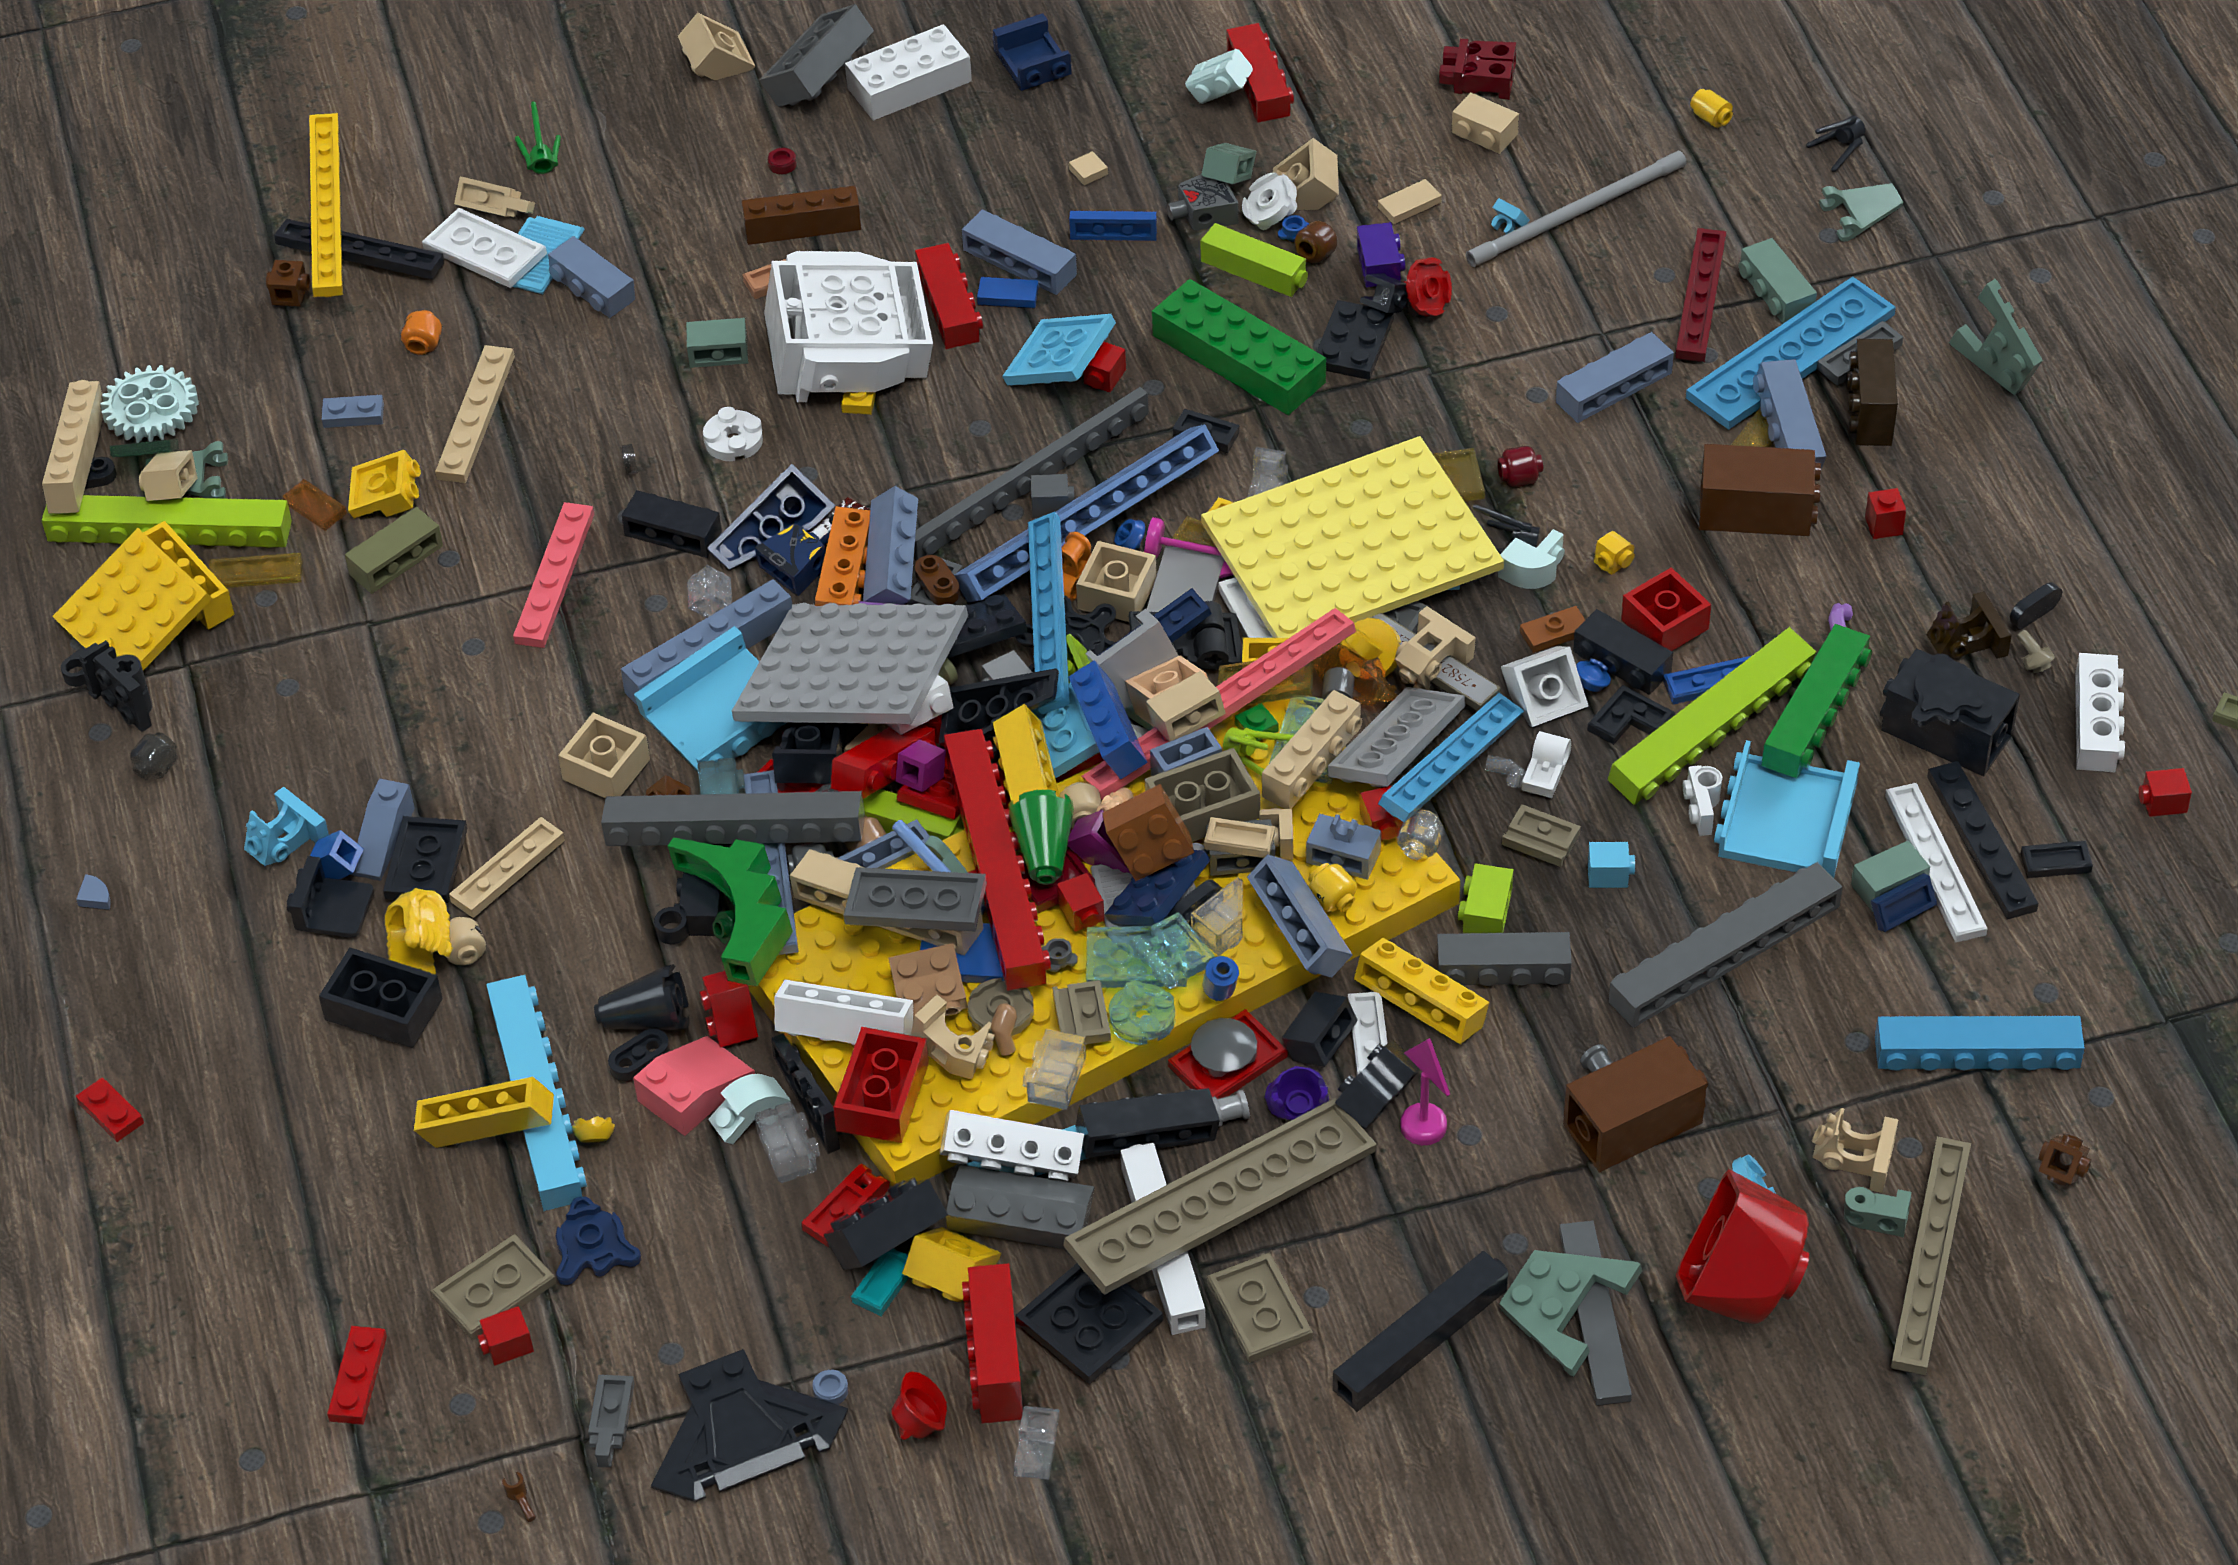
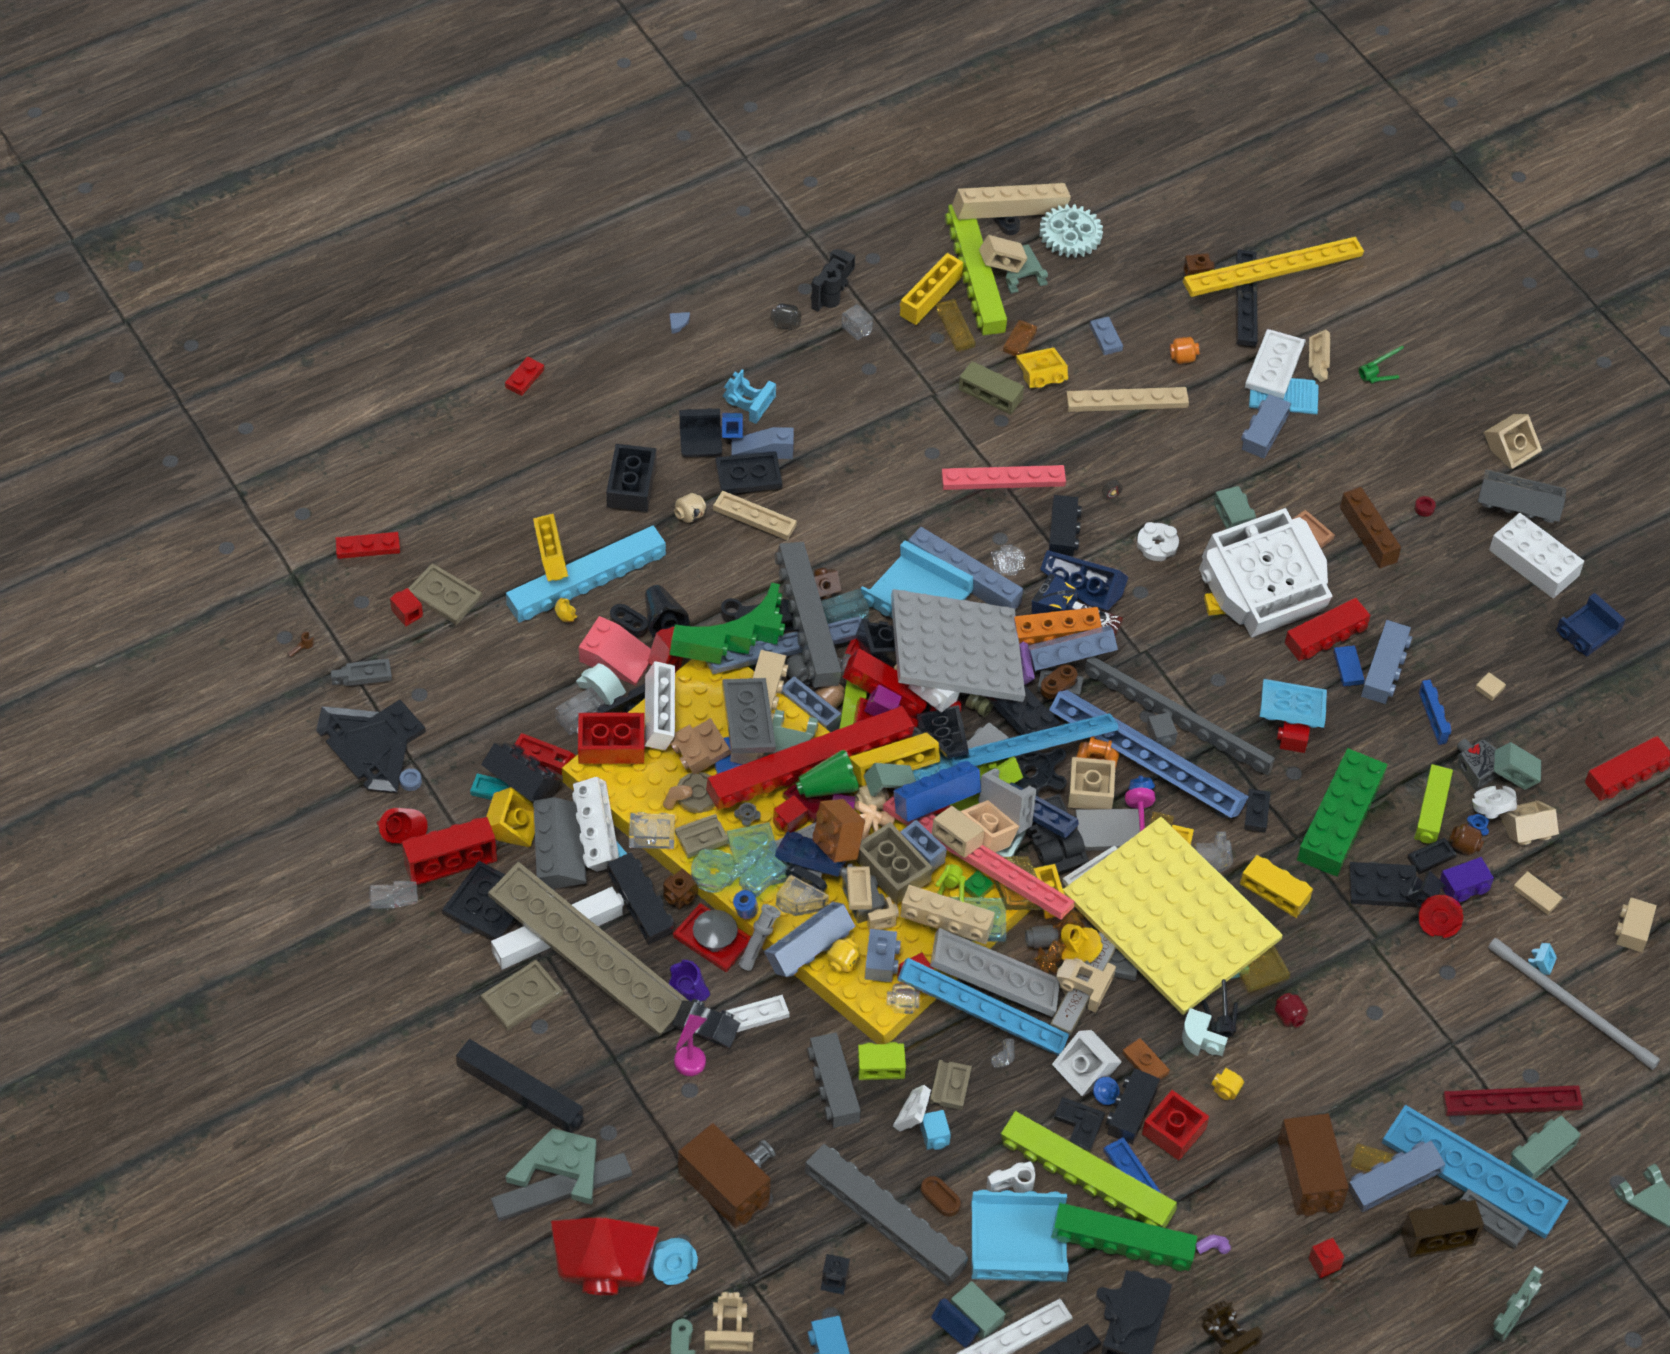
camera: 70 degrees right, 5 degrees up
(134, 601) = (894, 269): yellow plate -> none
(144, 448) = (1028, 237): clear green tile -> none
(203, 675) = (857, 322): none -> clear brick
(416, 928) = (683, 480): yellow piece -> none
(592, 1241) = (487, 633): dark blue tile -> none
(604, 756) = (851, 539): tan brick -> none
(921, 849) = (799, 723): medium blue bar -> none
(944, 1044) = (657, 753): tan tile -> none
(1074, 767) = (888, 776): none -> sand green panel
(1143, 1072) = (680, 889): none -> reddish brown brick
(1219, 76) = (1604, 741): light aqua brick -> none
(1232, 1107) = (669, 944): light grey bush -> none
(1258, 972) = (762, 928): none -> light grey pin
(1319, 1028) = (742, 981): black brick -> none
(1324, 284) = (1432, 855): none -> black tile
(1330, 437) = (1276, 886): none -> yellow brick
(1421, 990) = (791, 1035): yellow brick -> none
(1547, 764) = (1015, 1077): white plate -> none
(1575, 877) = (914, 1109): none -> white wing
(1614, 377) = (1402, 1056): sand blue brick -> none
(1705, 884) = (940, 1196): none -> reddish brown tile
(1805, 1015) = (835, 1274): none -> black window

